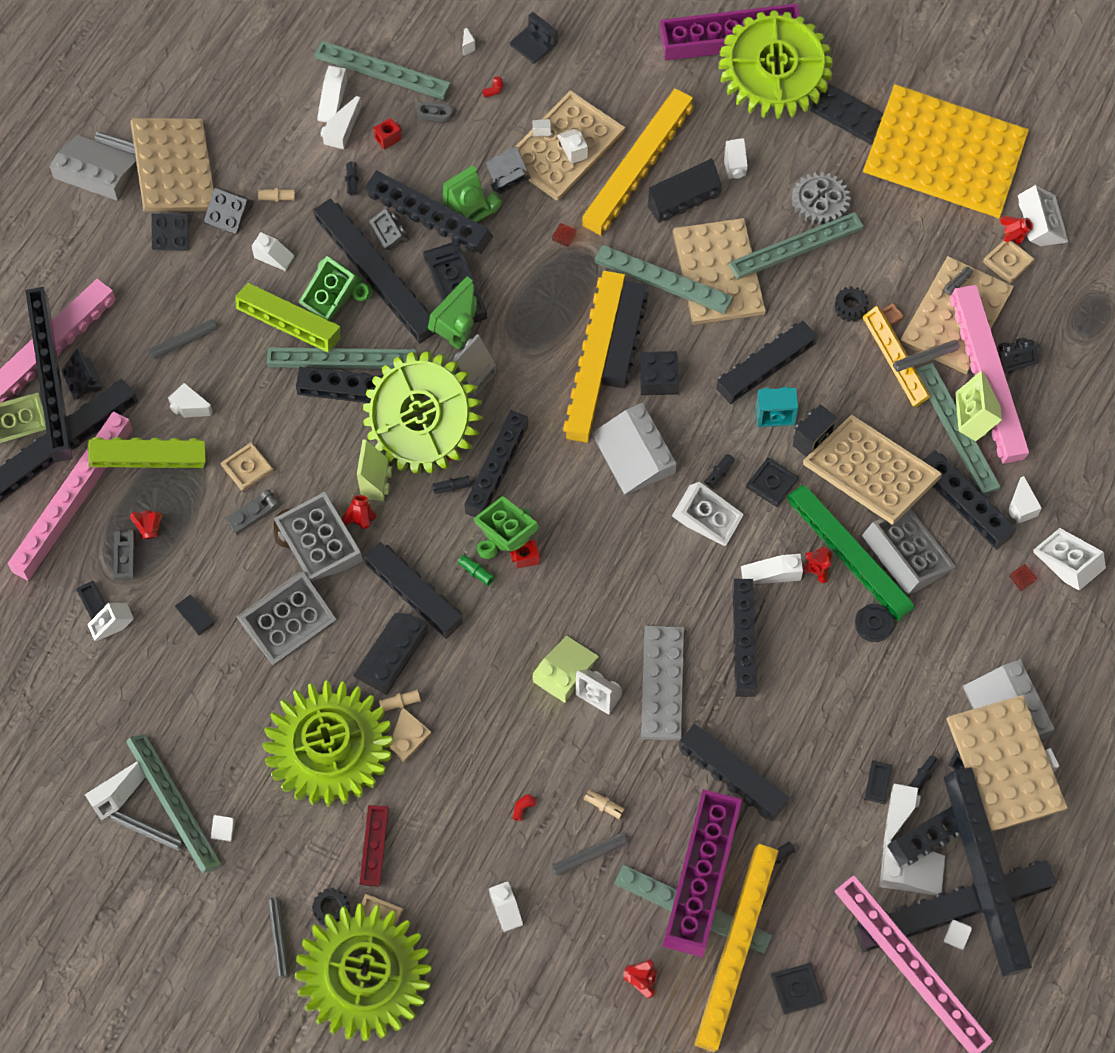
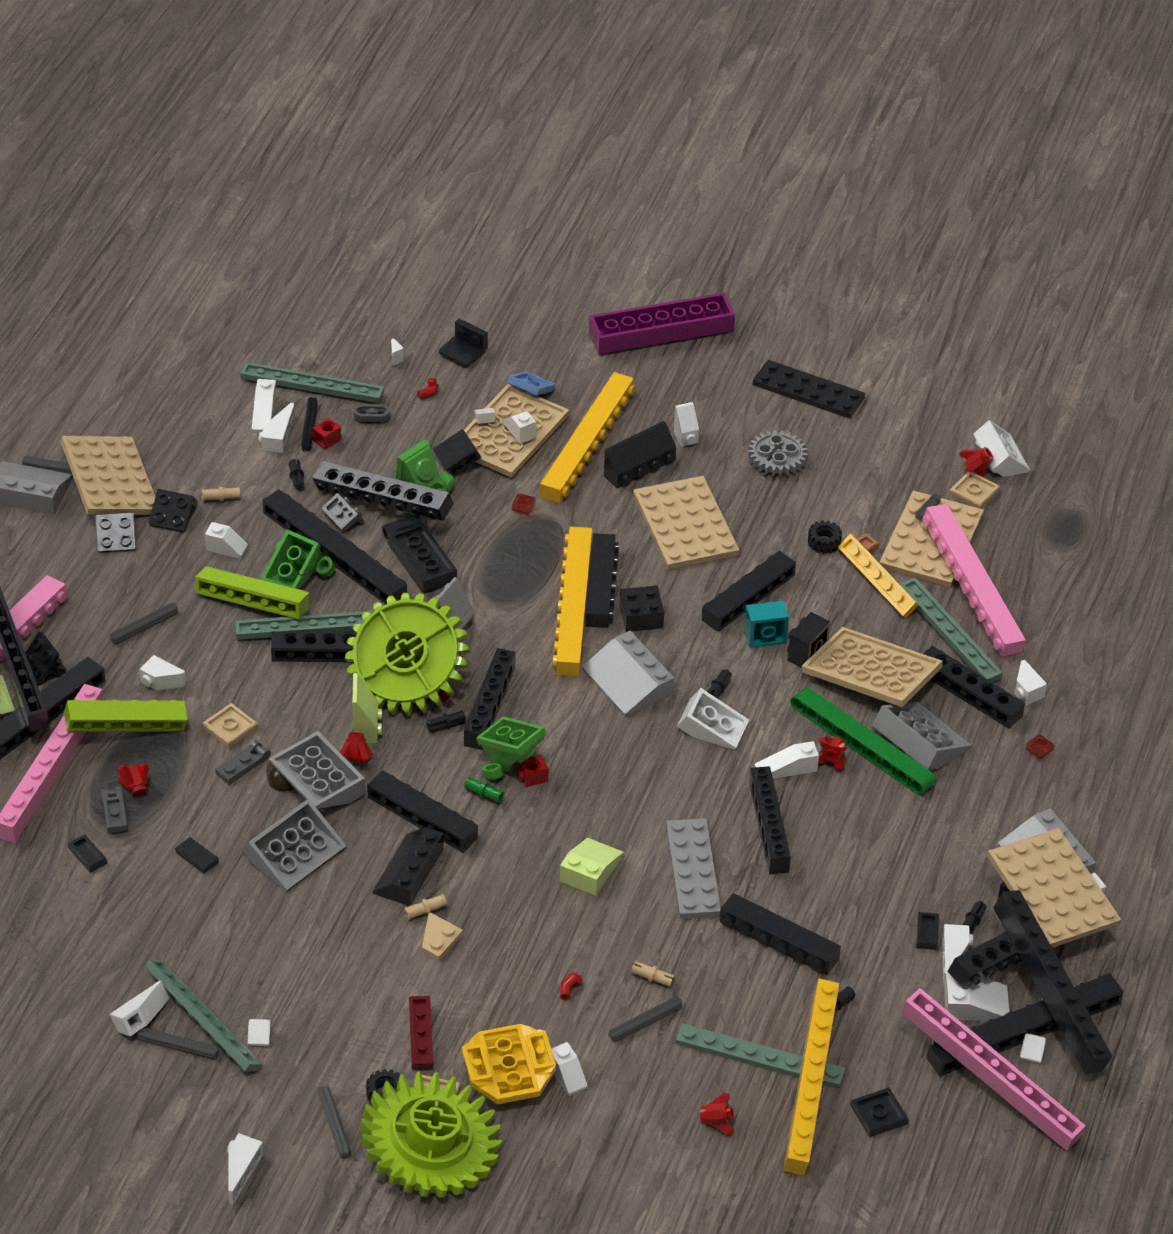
camera: 10 degrees left, 20 degrees down
(110, 620) = (109, 865): white slope -> none
(184, 975) = (243, 1159): none -> white slope
(333, 767) = (357, 950): lime gear -> none
(372, 118) = (309, 423): none -> black axle
(449, 877) = (509, 1062): none -> yellow piece
(455, 315) = (426, 568): bright green piece -> none
(592, 92) = (531, 383): none -> medium blue plate
(597, 690) = (628, 873): white slope -> none
(664, 279) = (633, 531): sand green plate -> none
(702, 873) = (765, 1016): magenta brick -> none
(772, 482) = (773, 691): black tile -> none
(788, 43) = (712, 341): lime gear -> none
(795, 246) = (759, 492): sand green plate -> none
(874, 623) = (898, 799): black tile -> none
(926, 355) = (908, 568): dark grey axle -> none
(946, 151) = (895, 404): yellow plate -> none
(977, 407) = (967, 606): yellowish green slope -> none
(1018, 354) = (1000, 562): black bracket -> none
(1071, 558) = (1085, 726): white slope -> none

